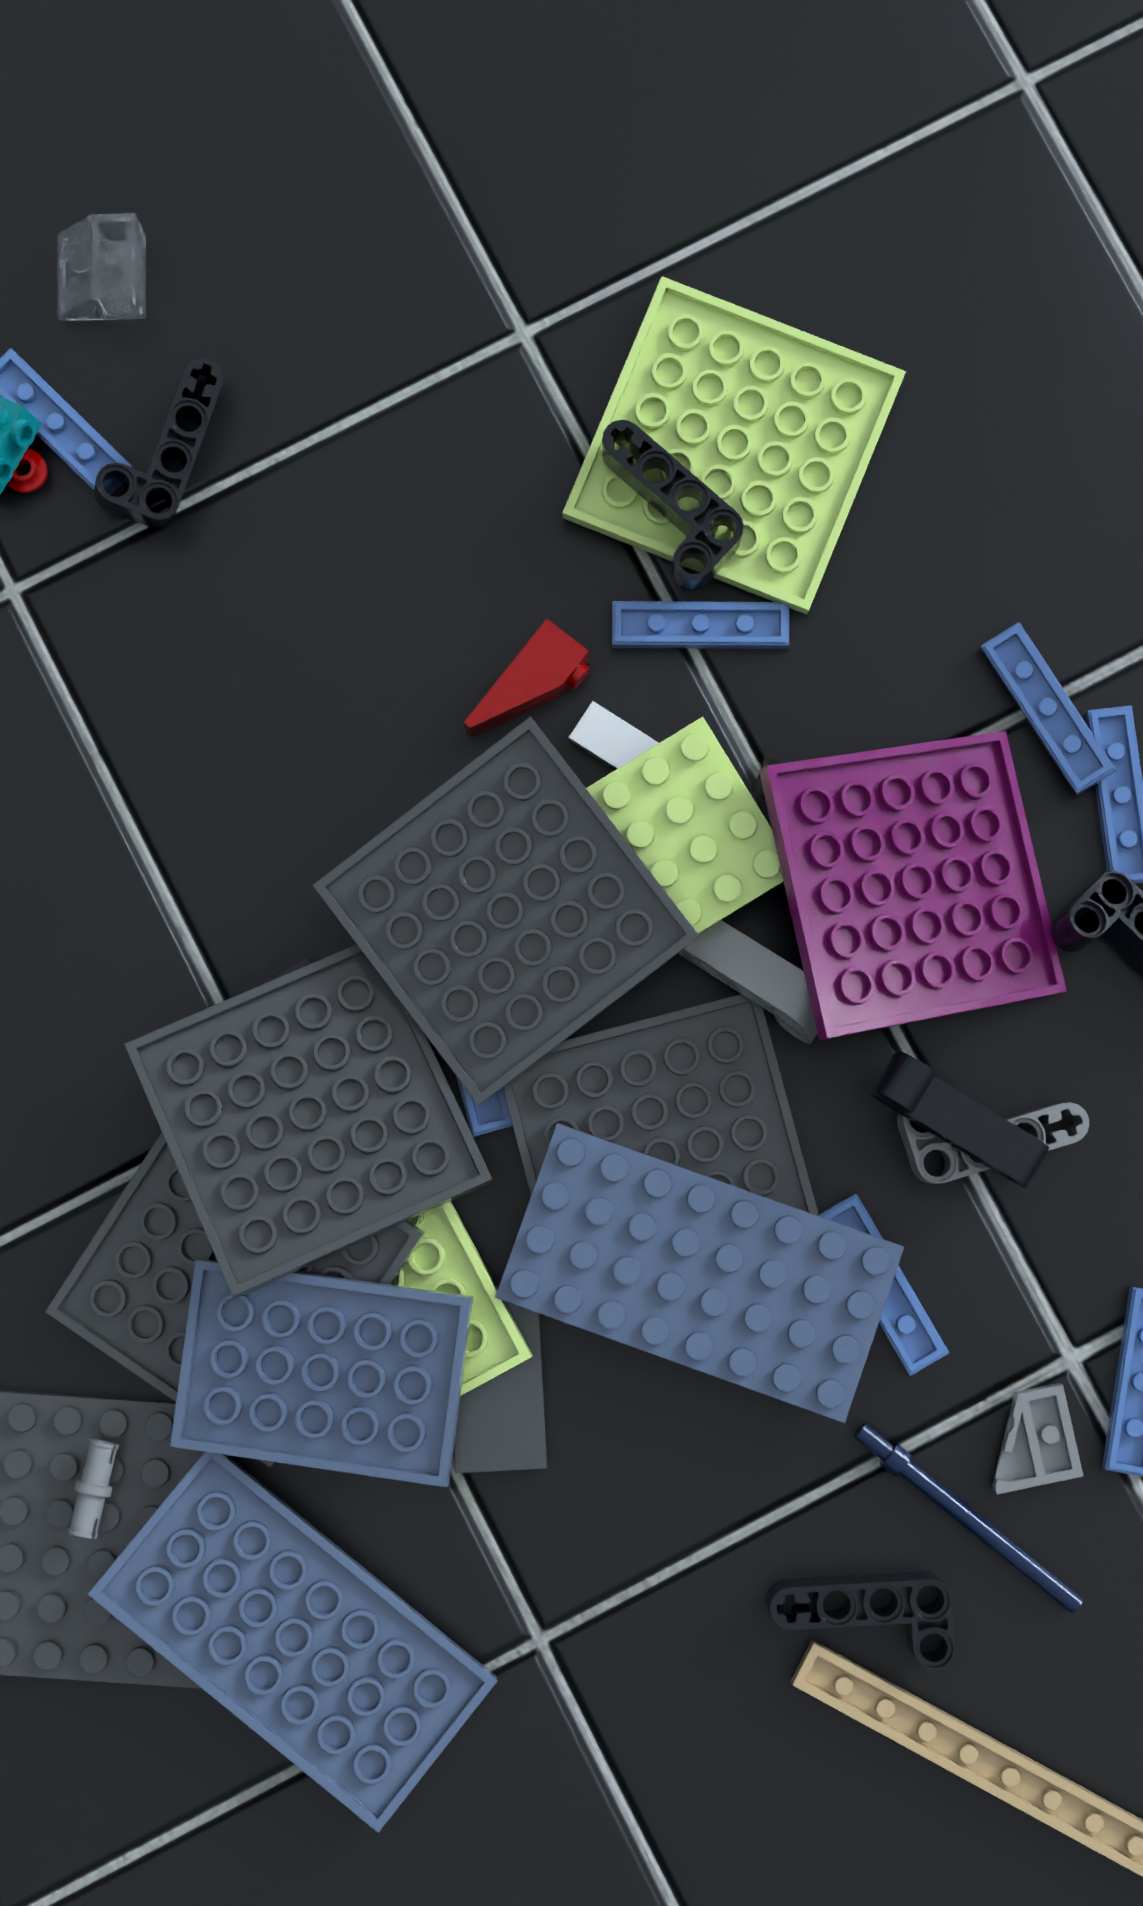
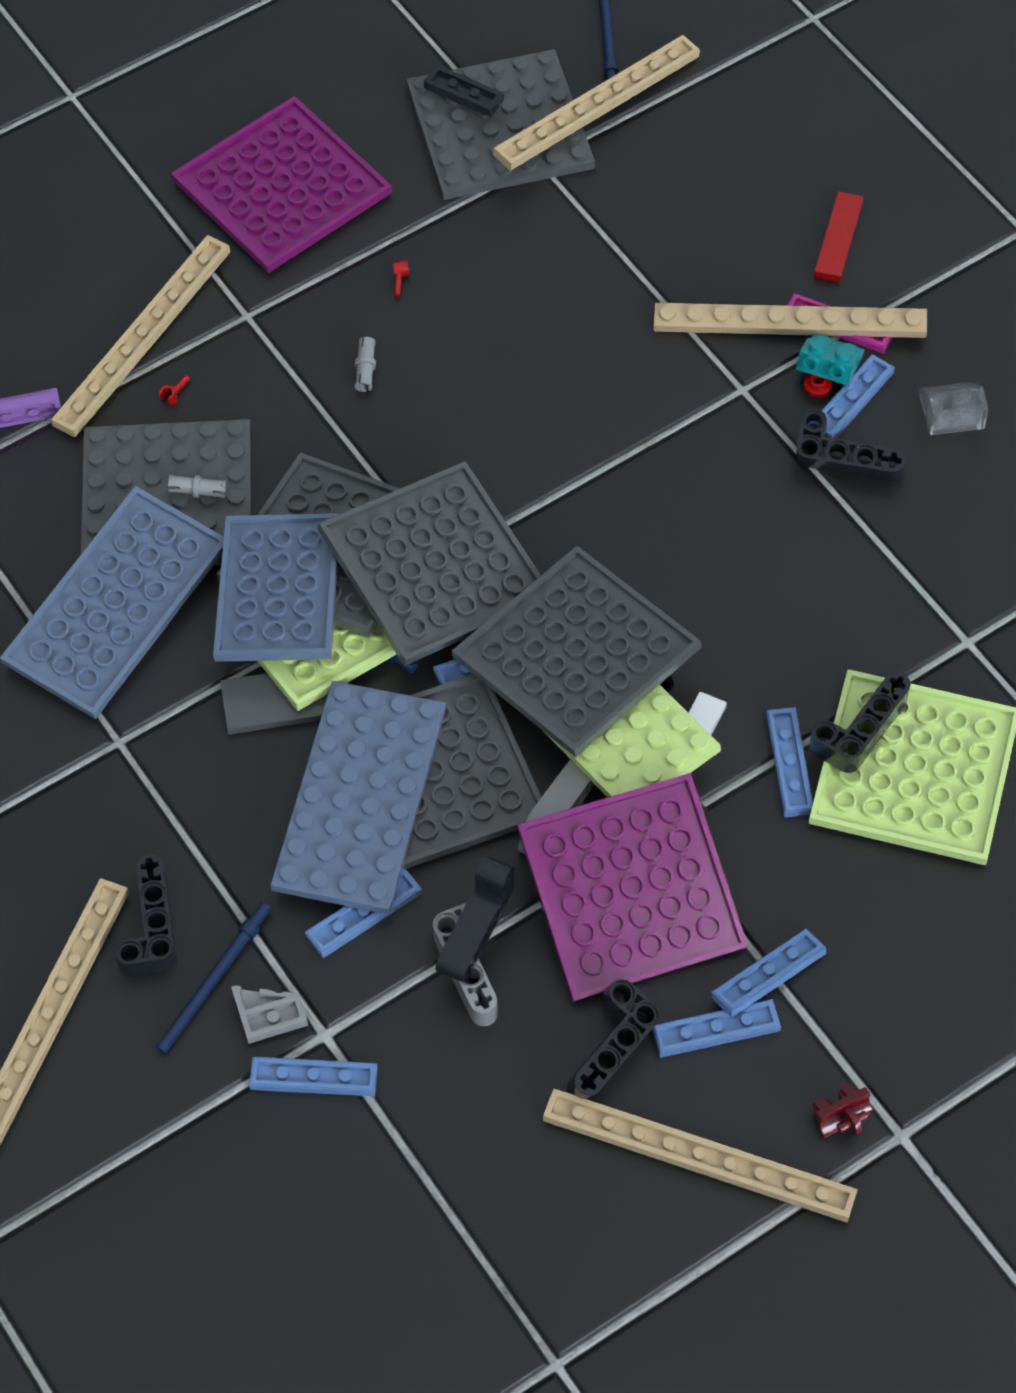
camera: 80 degrees right, 25 degrees down
(536, 676) = (736, 666): red slope -> none

